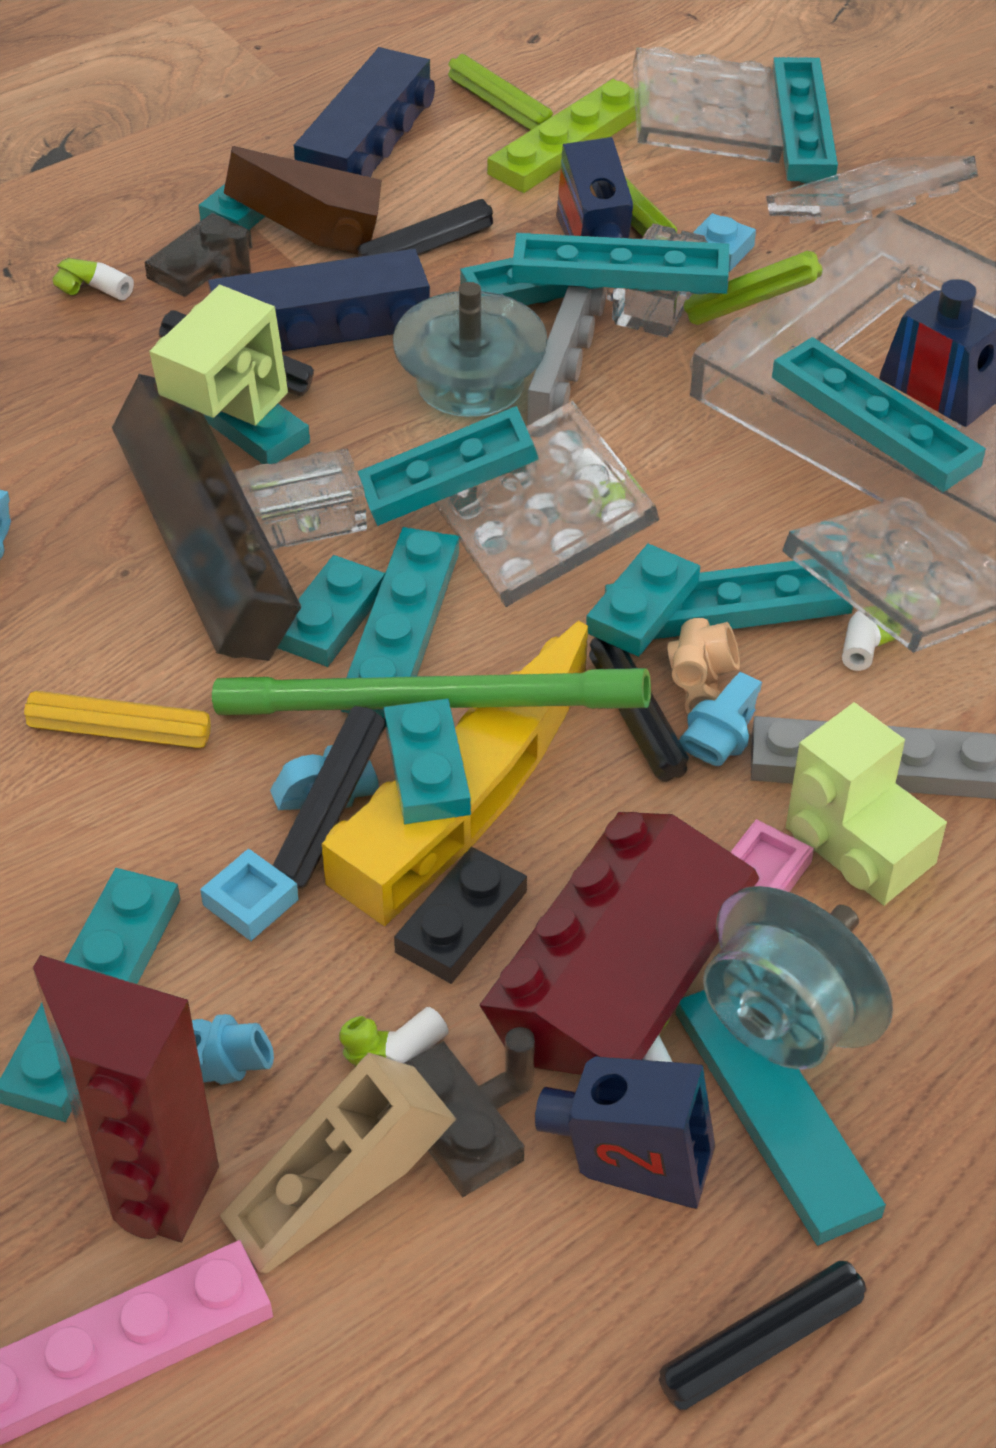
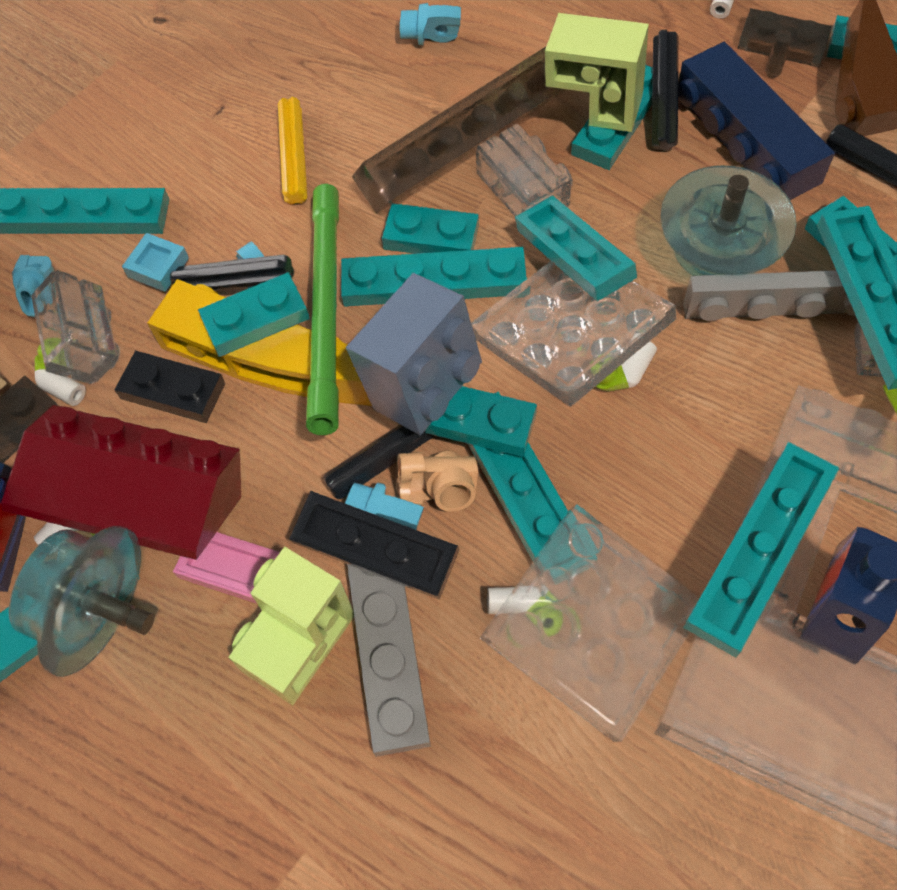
camera: 80 degrees right, 15 degrees up
(341, 983) = (74, 328): none -> clear brick
(588, 580) = (416, 353): none -> sand blue brick
(777, 719) = (375, 544): none -> black tile

